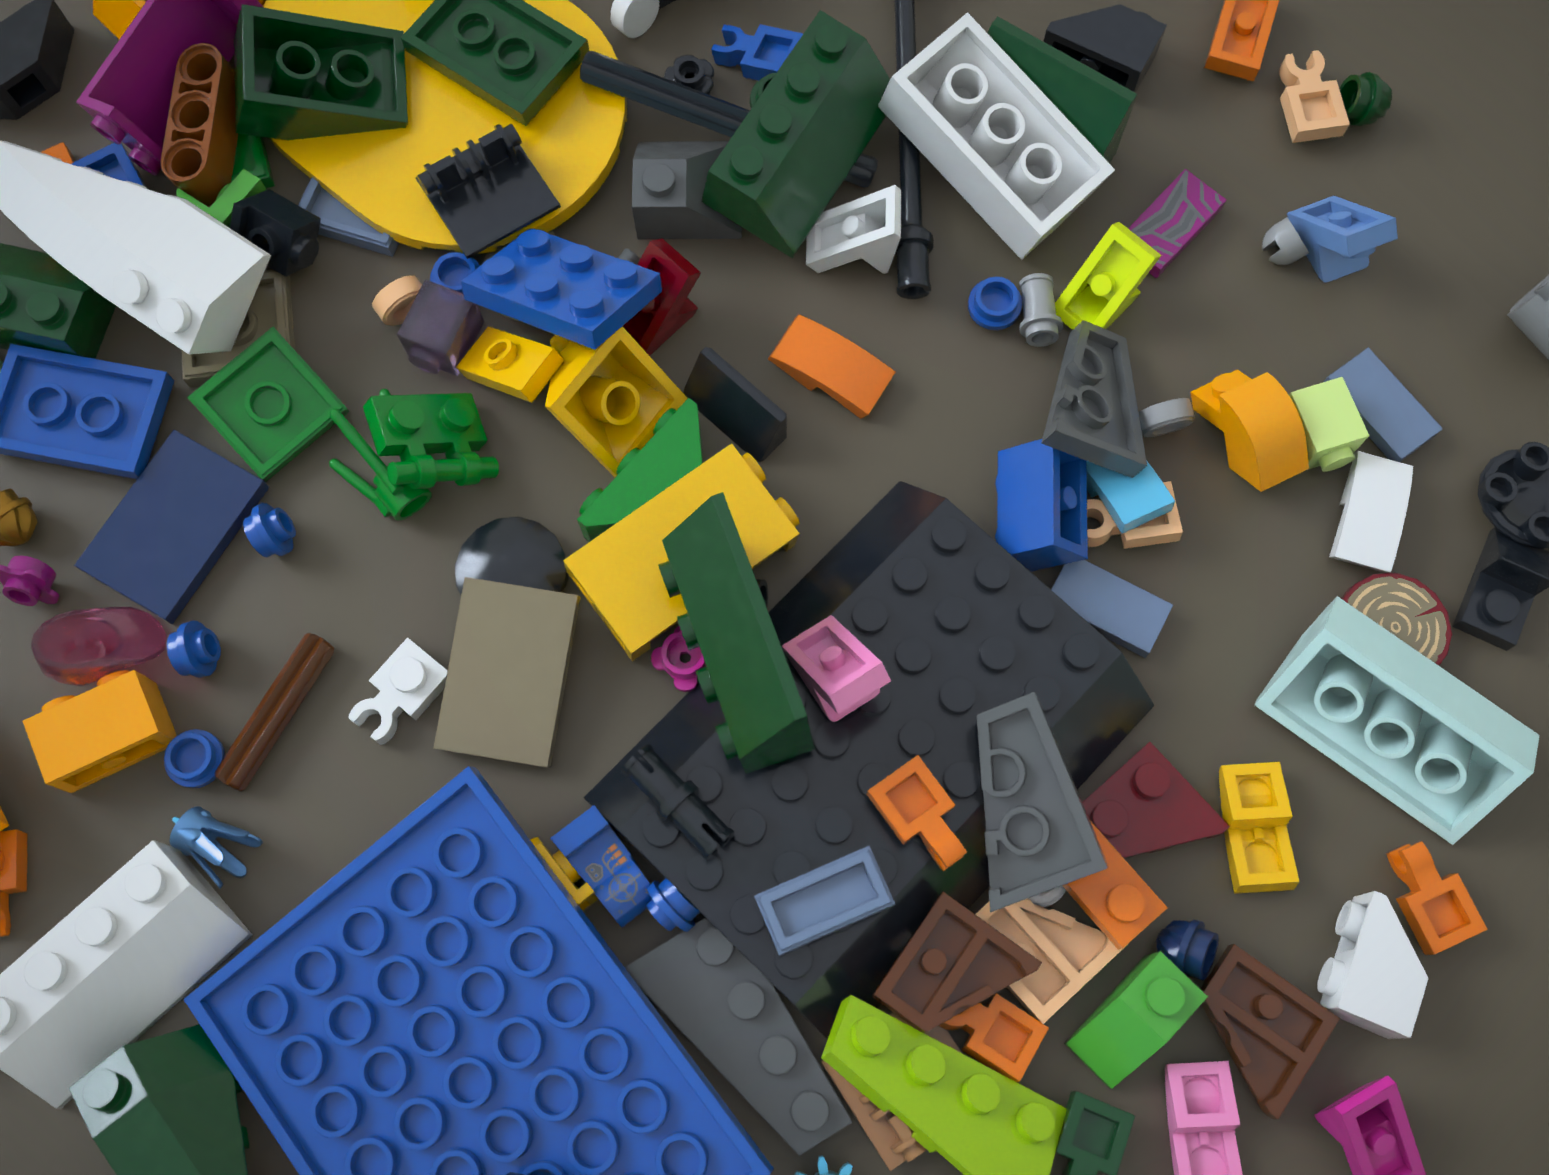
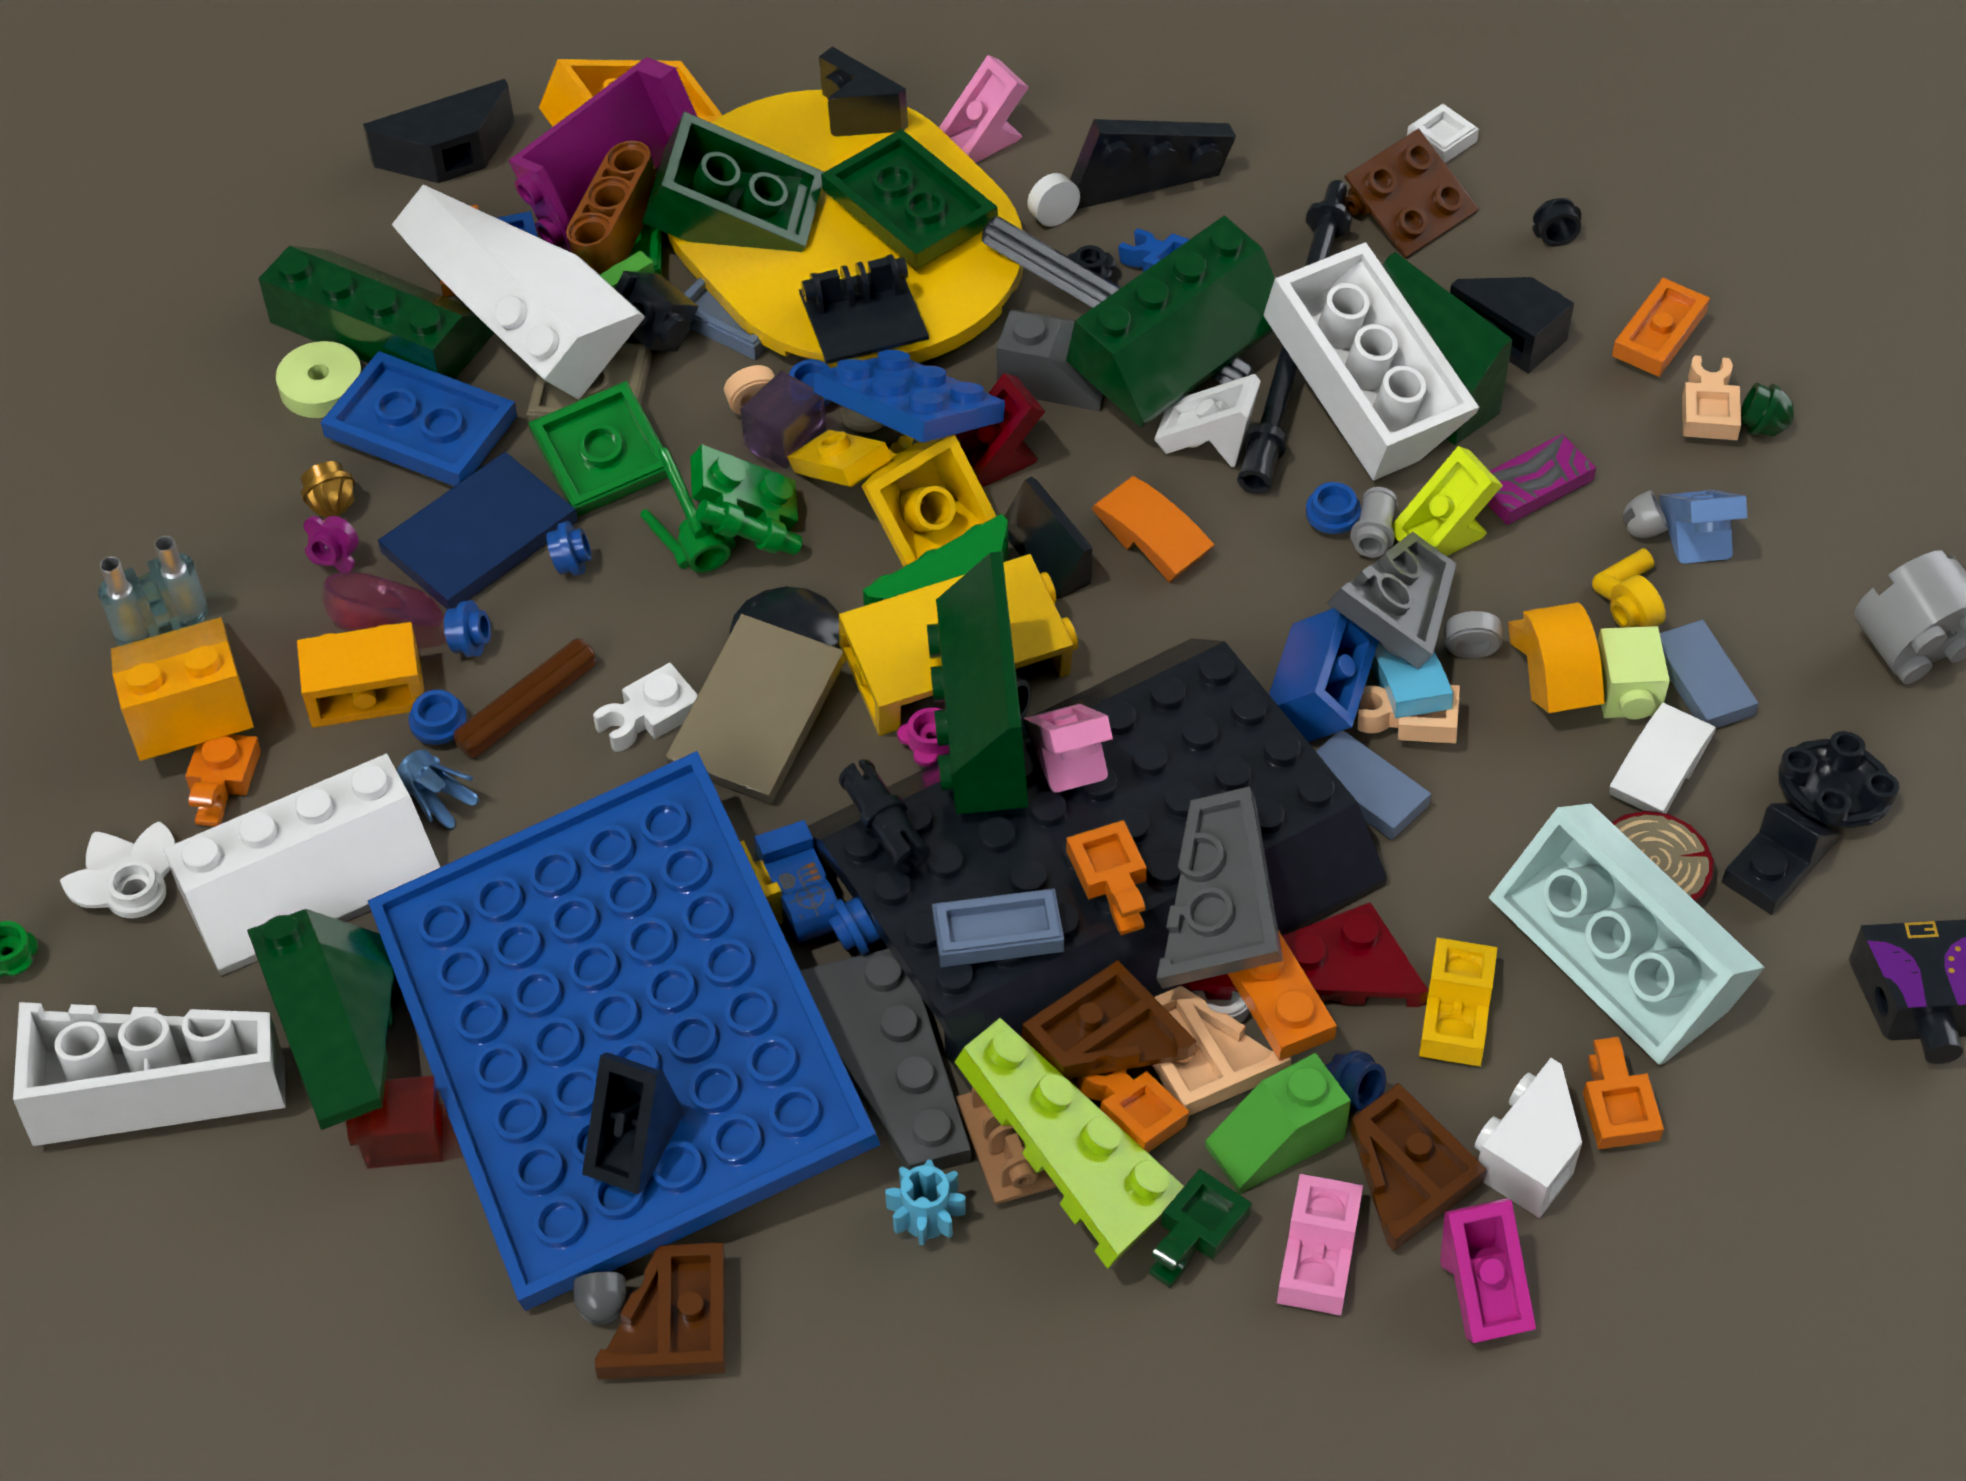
camera: 15 degrees right, 20 degrees down
(1303, 344) = (1631, 595): none -> yellow plate

